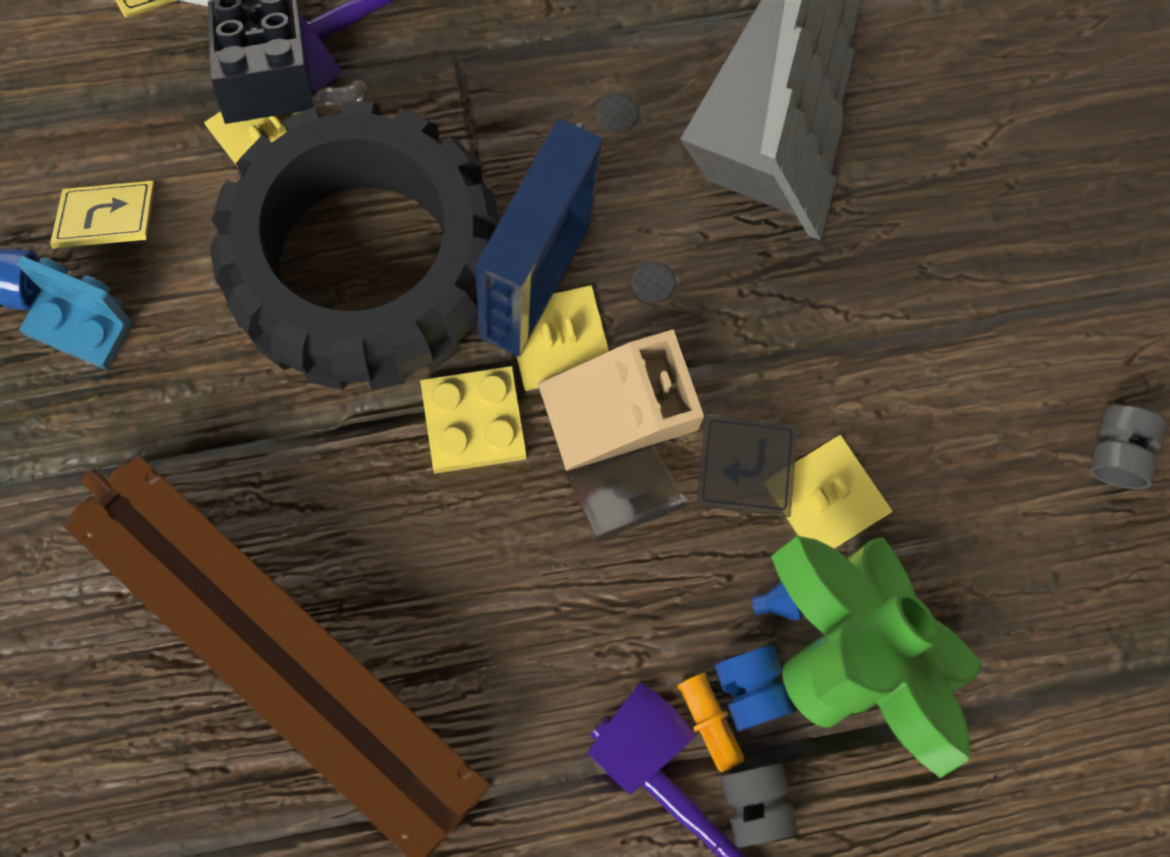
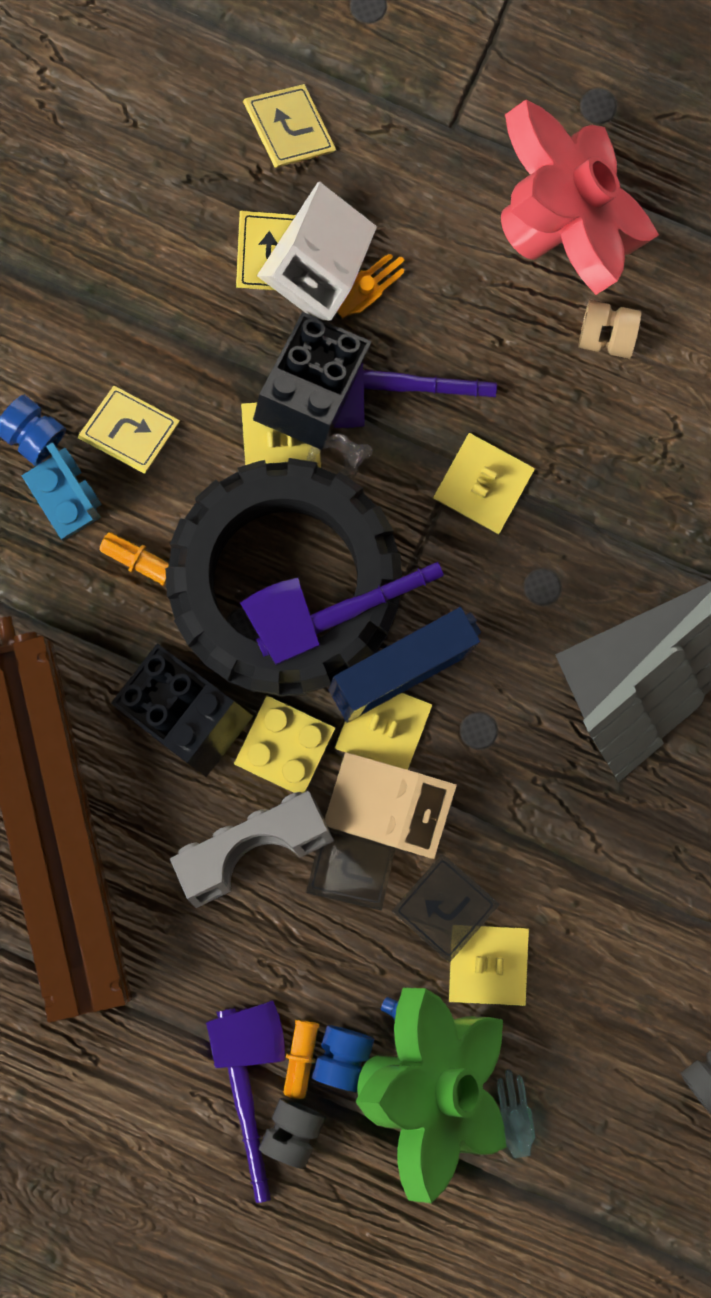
camera: 40 degrees right, 10 degrees up
(194, 335) = (134, 557): none -> light orange axle
(344, 450) = (181, 710): none -> black slope
(397, 270) = (289, 629): none -> dark purple piece
(494, 56) = (483, 483): none -> light yellow piece
(536, 486) = (208, 866): none -> light grey arch
(969, 626) = (516, 1118): none -> clear light blue piece

